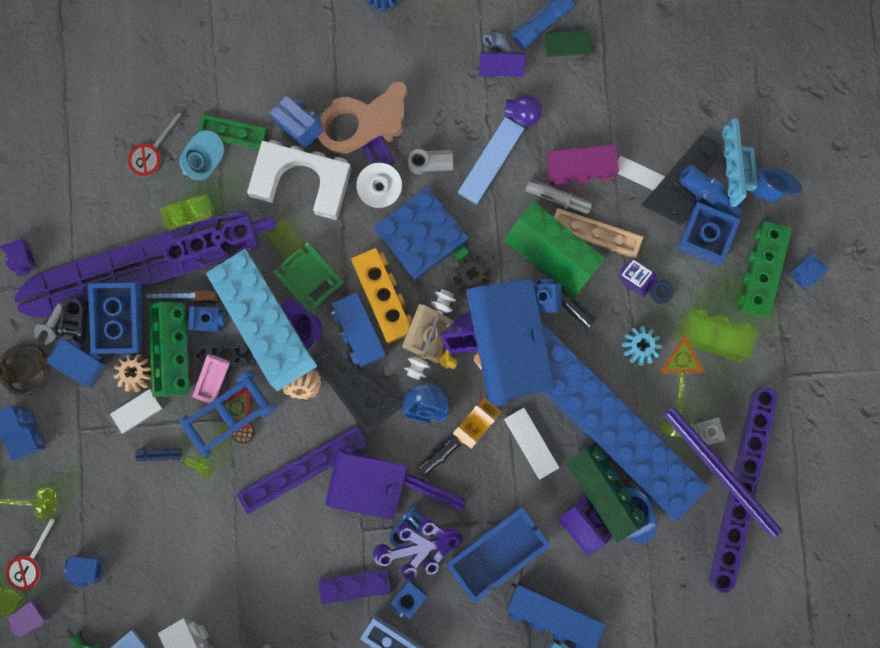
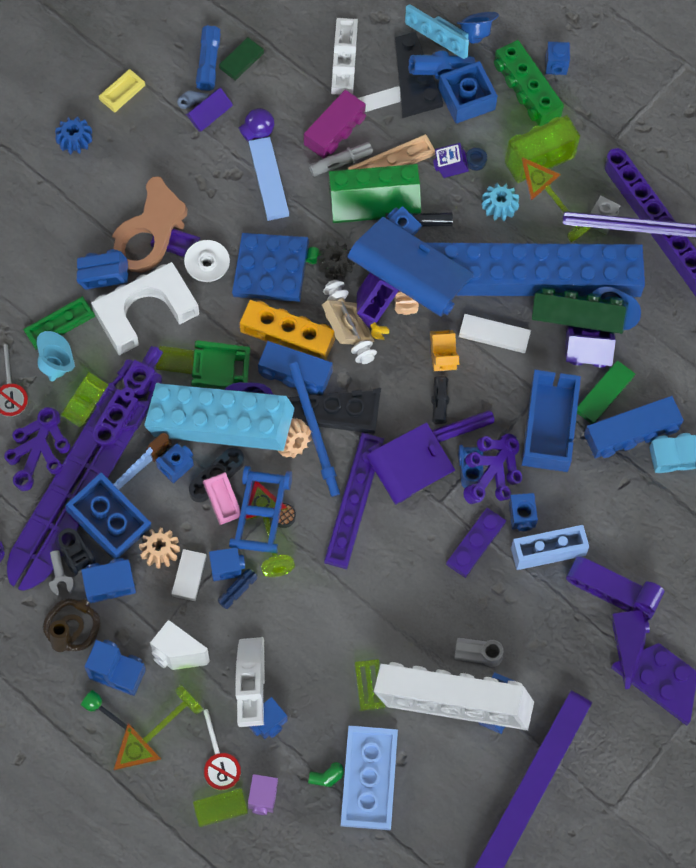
camera: 50 degrees left, 15 degrees down
(69, 462) = (177, 649): none -> white slope
(93, 532) = (250, 681): none -> white slope
(125, 215) = (37, 446): none -> dark purple plant
(165, 430) = (226, 564): none -> blue brick
(168, 349) = (170, 505): green brick -> none
(190, 597) = (371, 705): none -> clear neon green tile
(303, 431) = (328, 472): none -> blue bar
(426, 403) = (396, 370): blue cylinder -> none
(433, 161) = (227, 213): light grey piece -> none
(564, 568) = (605, 392): none -> green tile
(647, 114) = (344, 55): none -> white slope

